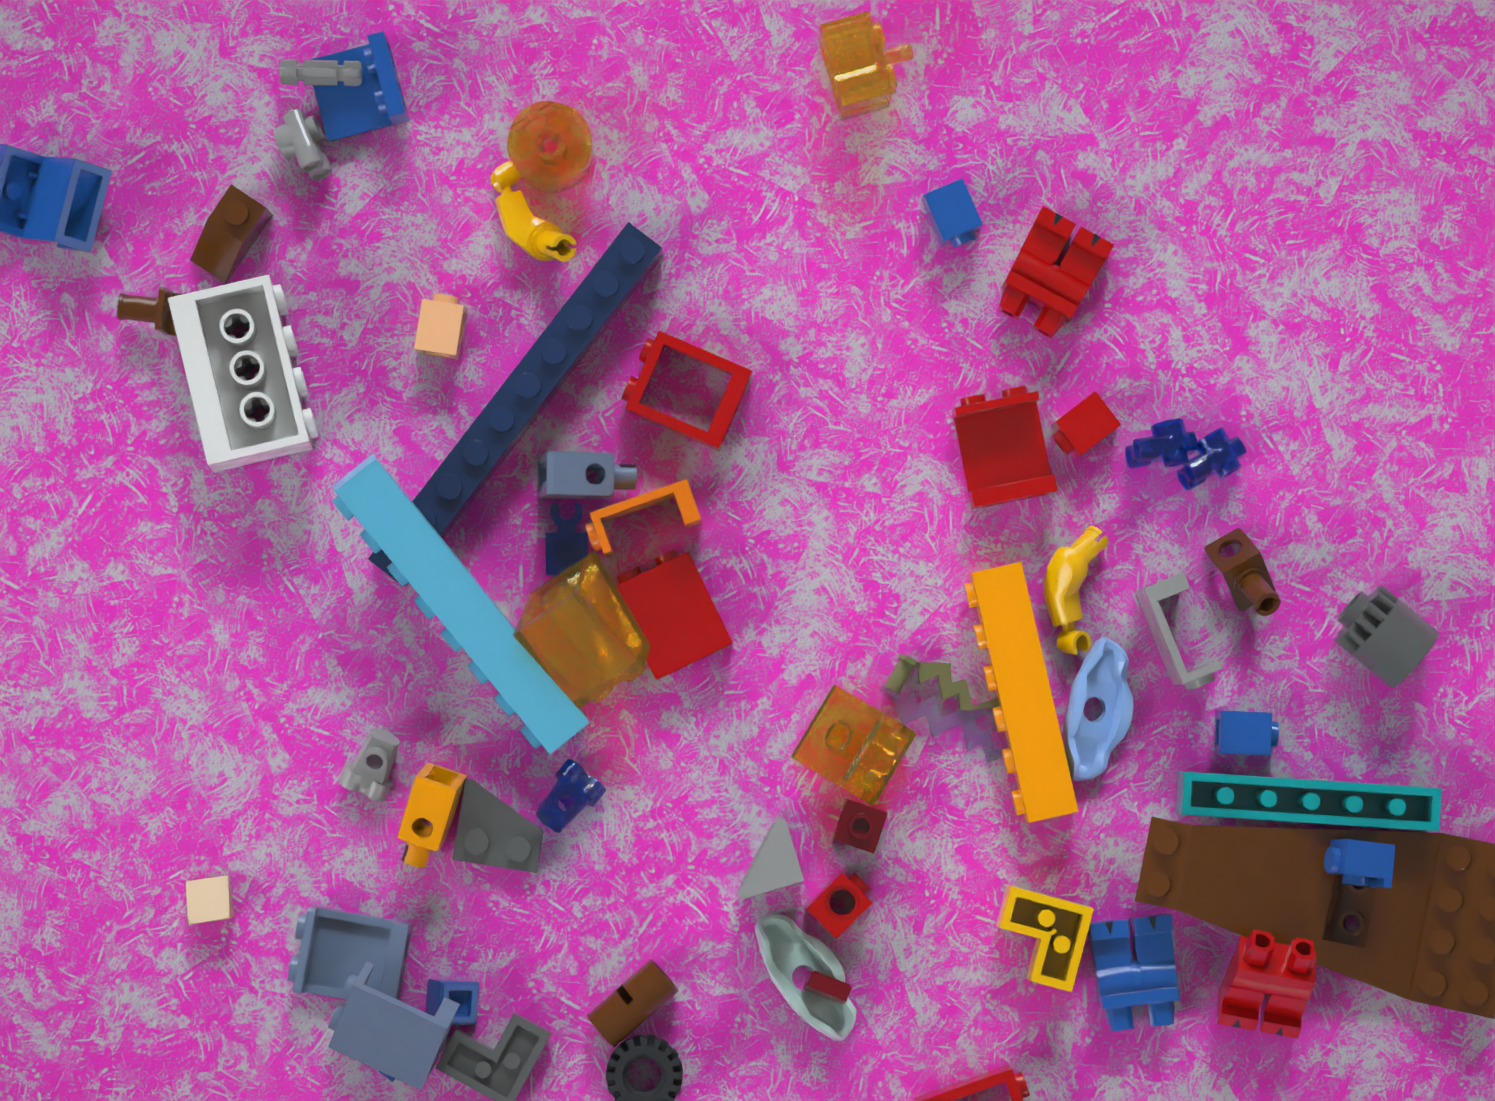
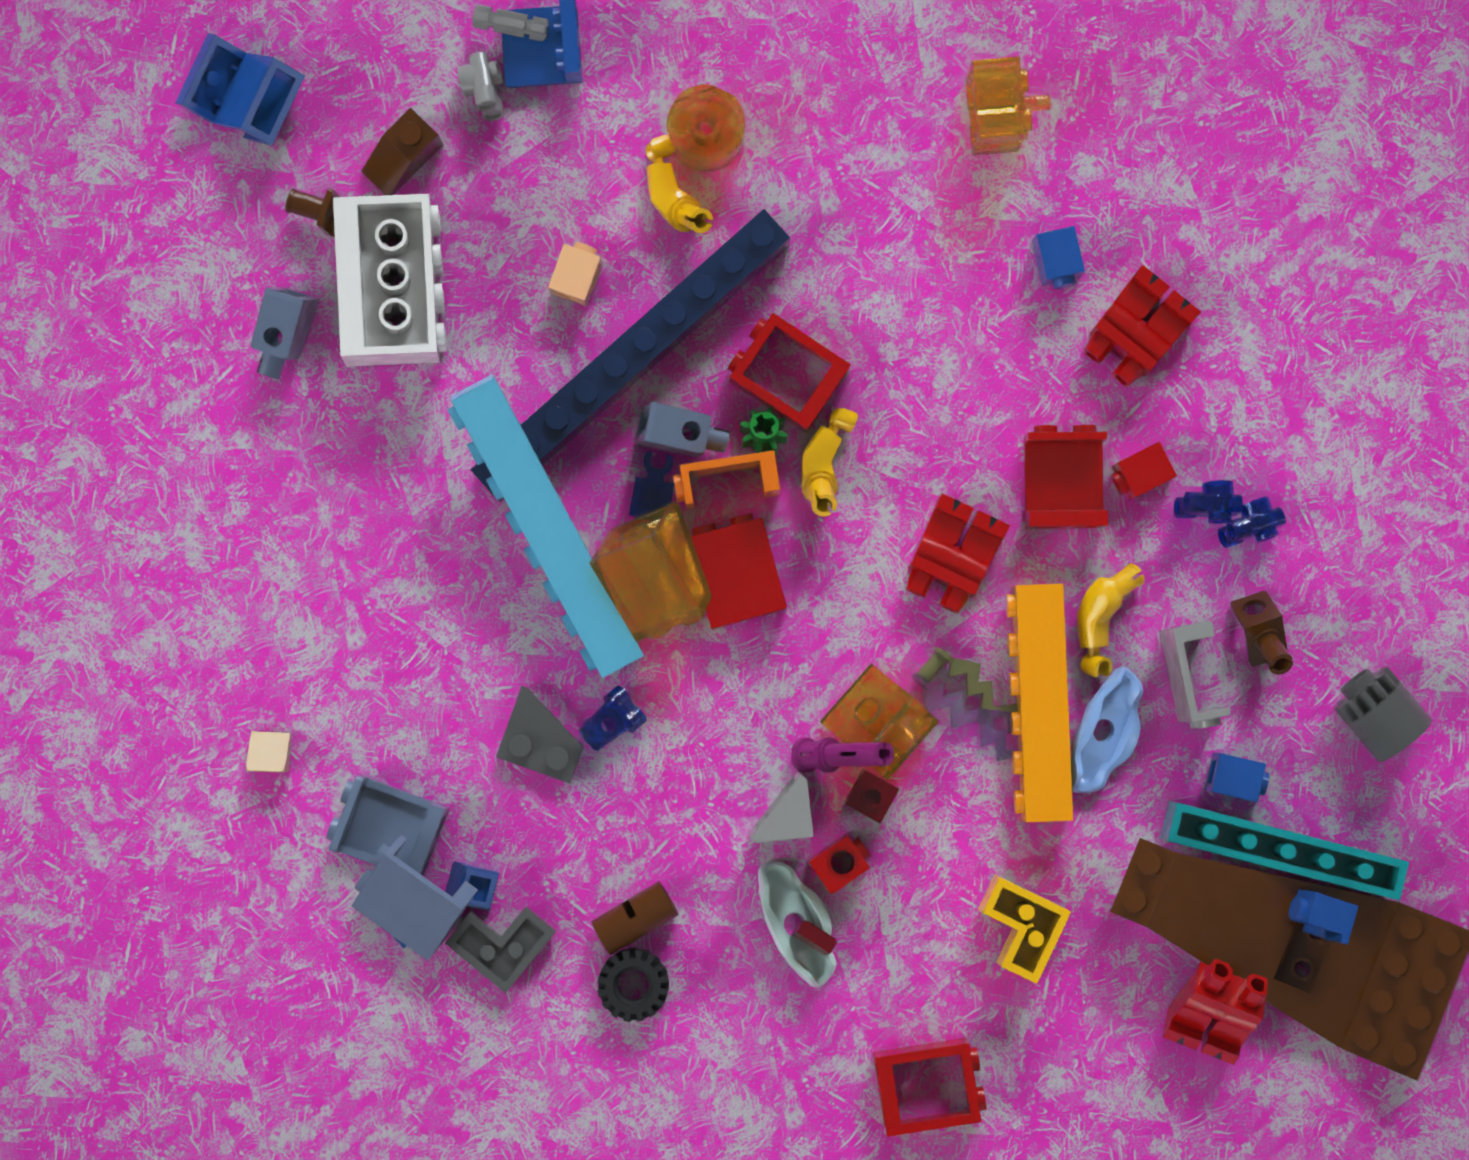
camera: 10 degrees right, 0 degrees up
(146, 429) = (292, 316): none -> sand blue torso
(372, 766) = (435, 662): light grey plate -> none
(435, 799) = (491, 699): light orange torso -> none
(674, 449) = (767, 423): none -> green gear
(738, 492) = (817, 472): none -> yellow arm
(808, 790) = (831, 754): none -> magenta pin
(896, 562) = (953, 565): none -> red hips
(1141, 981) = (1103, 984): blue hips -> none

